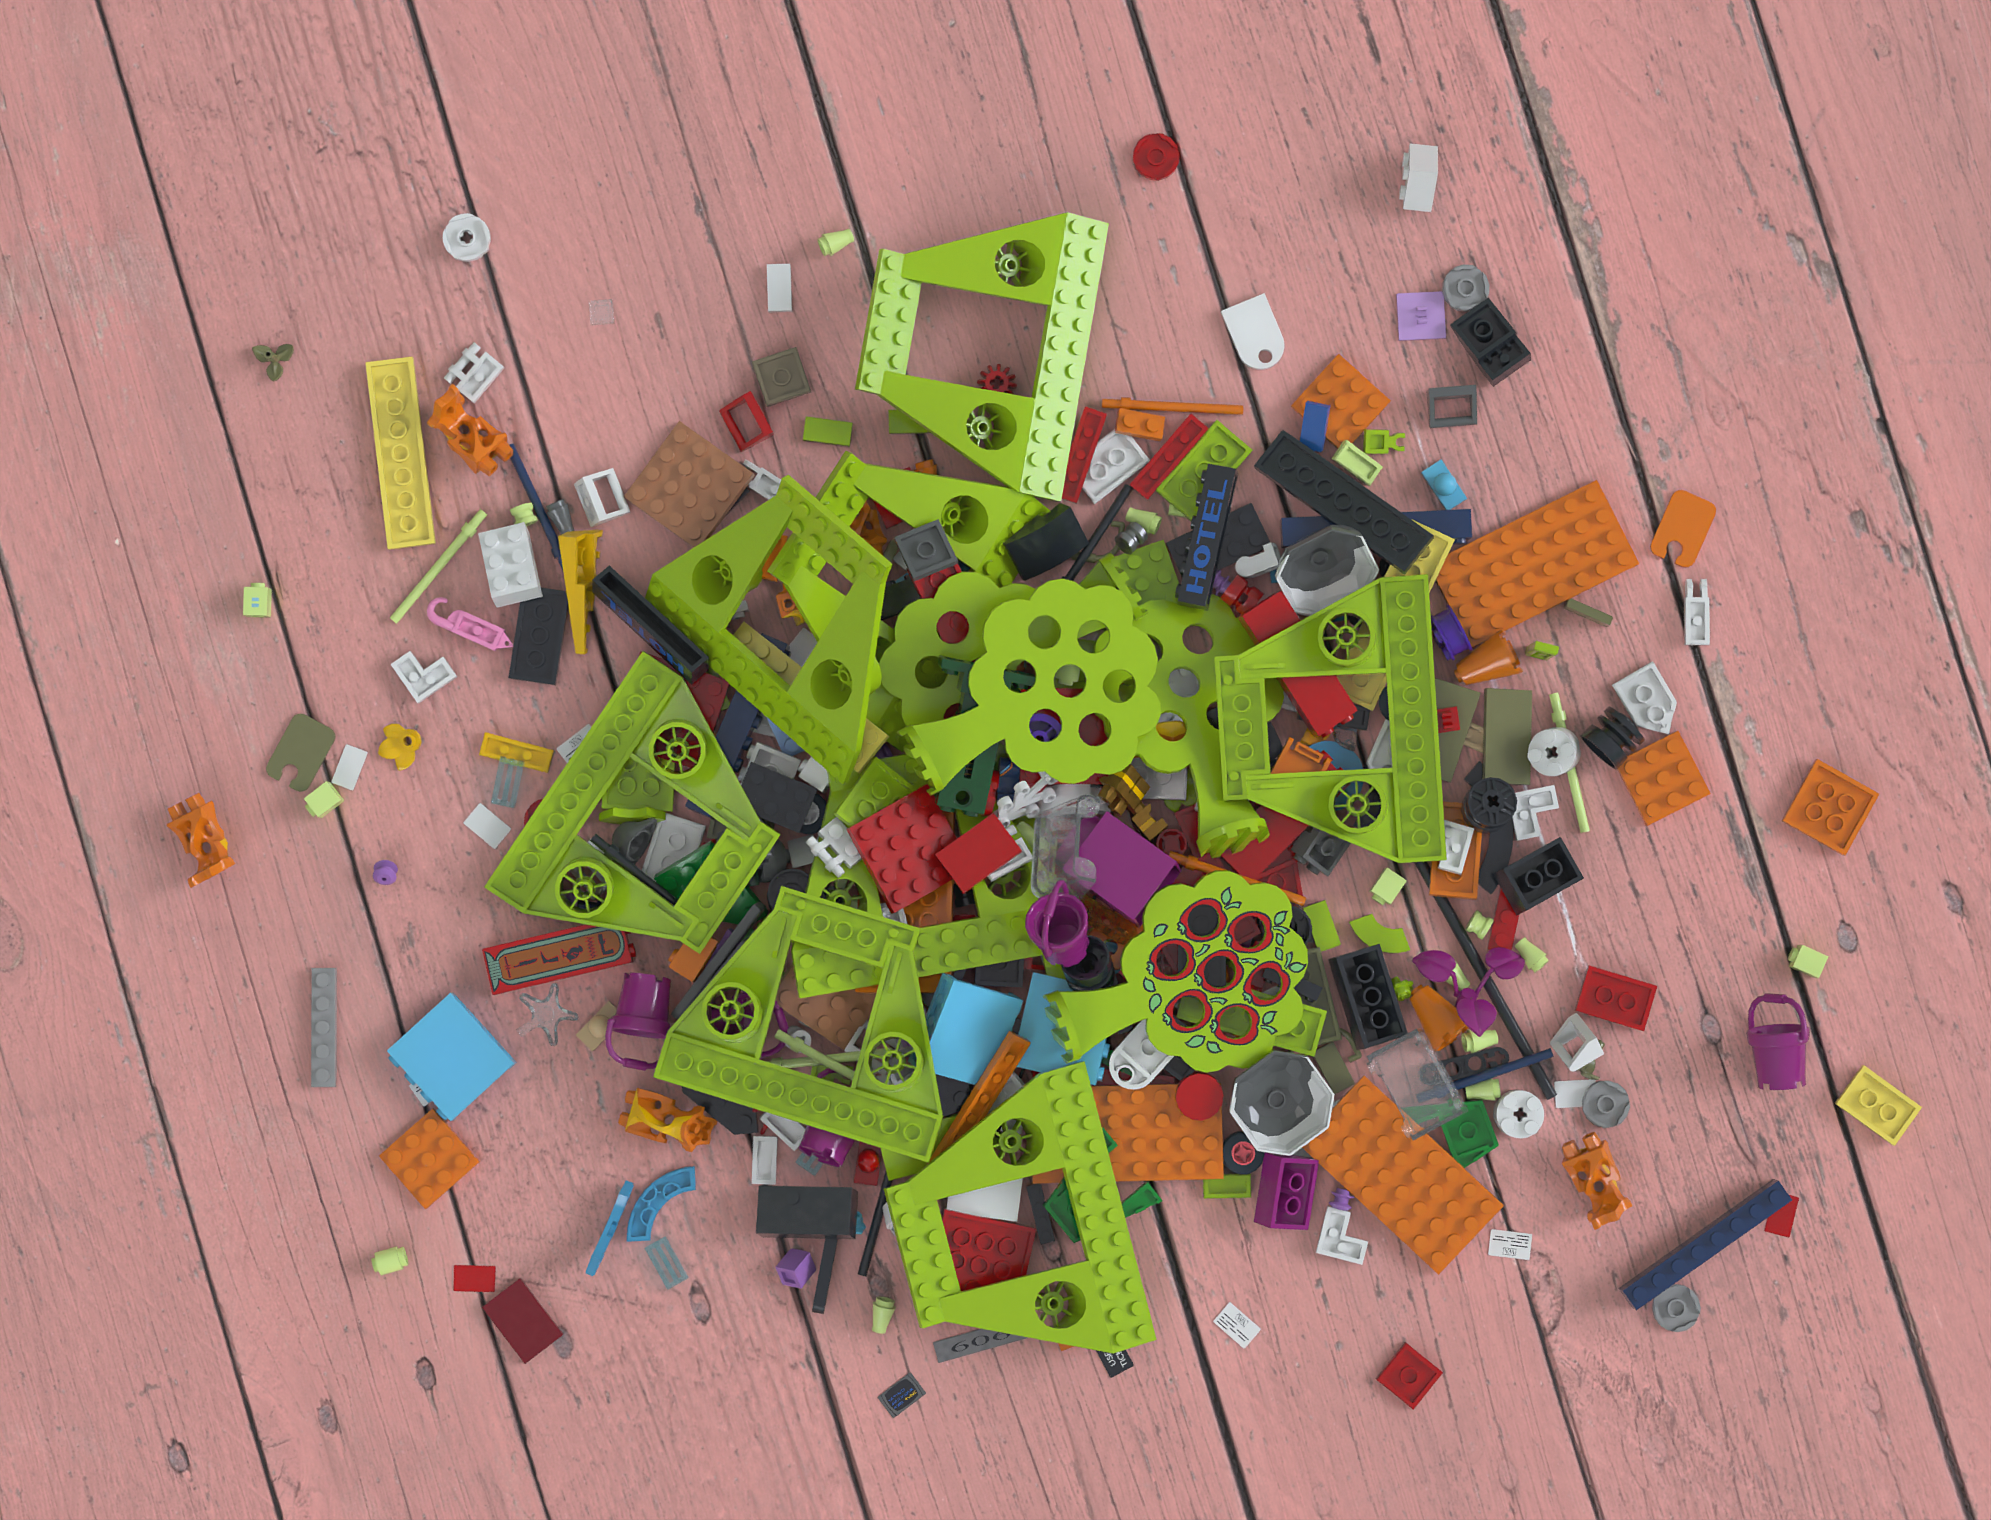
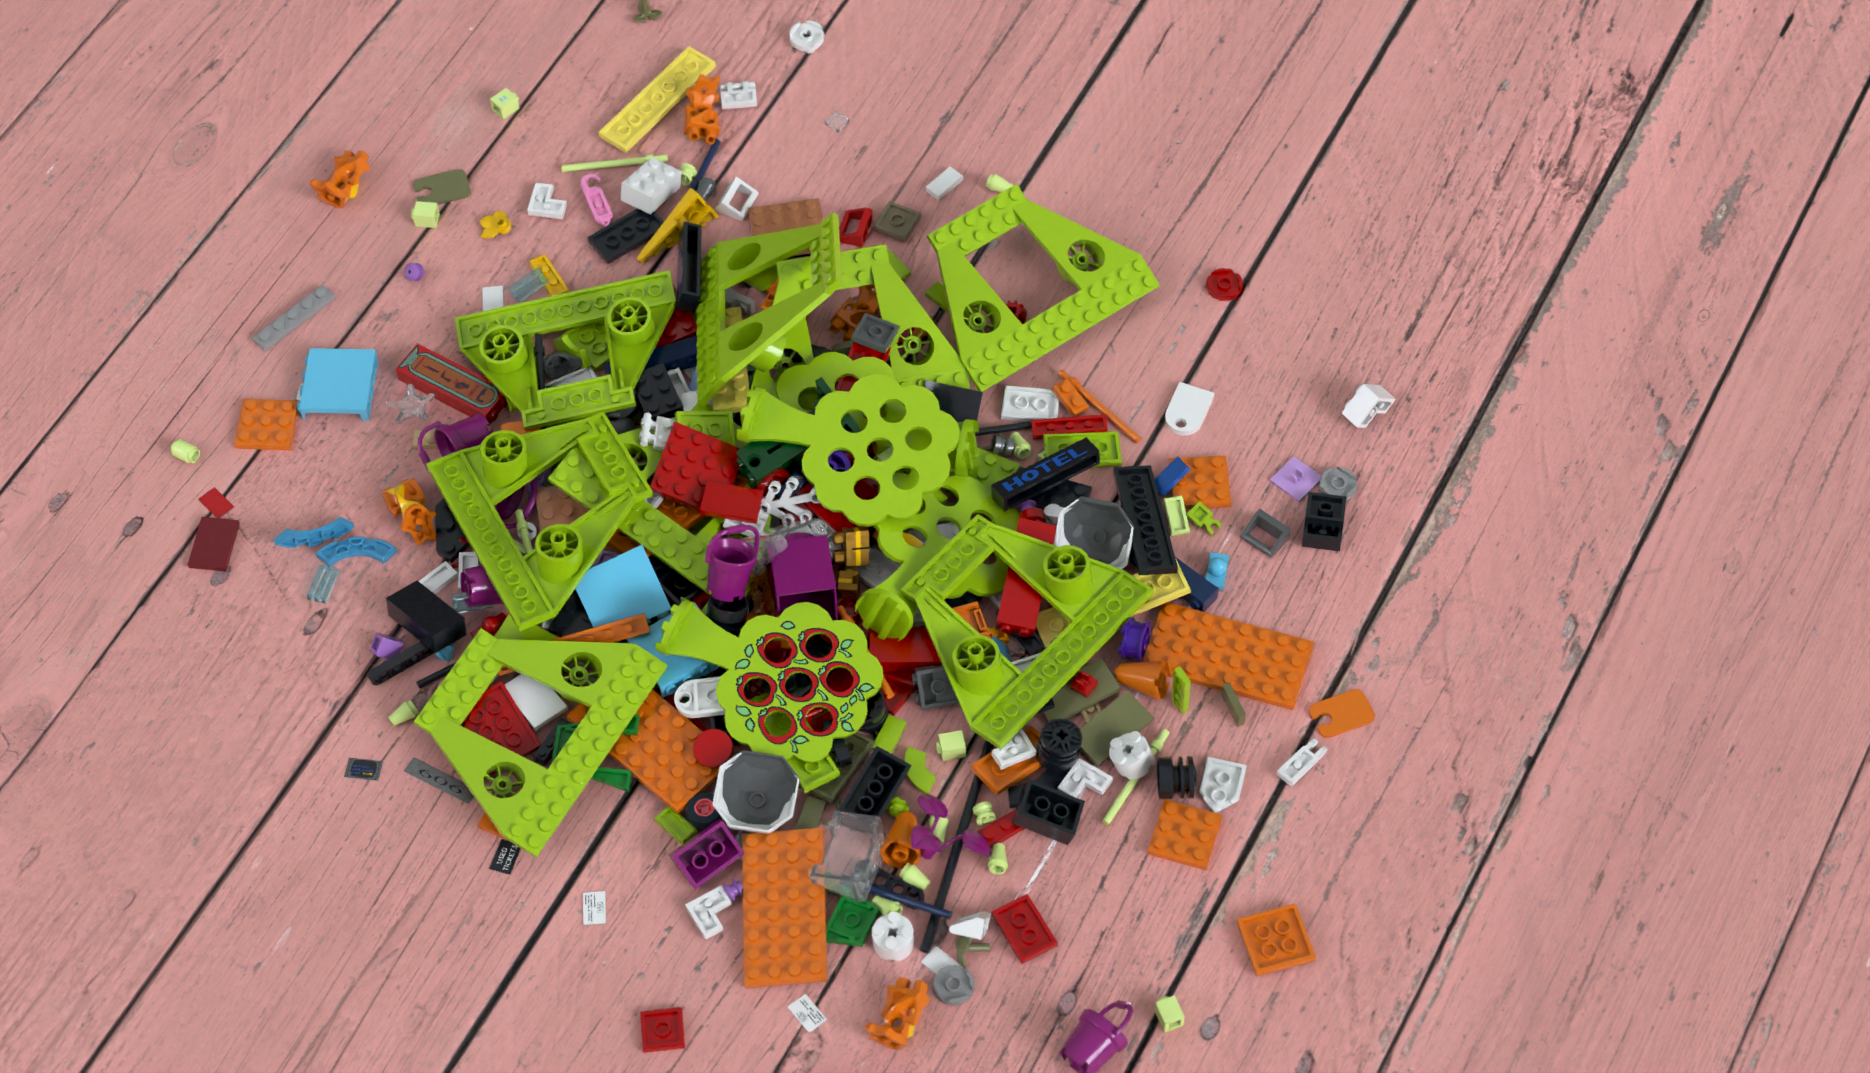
camera: 45 degrees right, 30 degrees down
(349, 767) = (457, 215): white sticker -> none
(1082, 452) = (1019, 383): red plate -> none

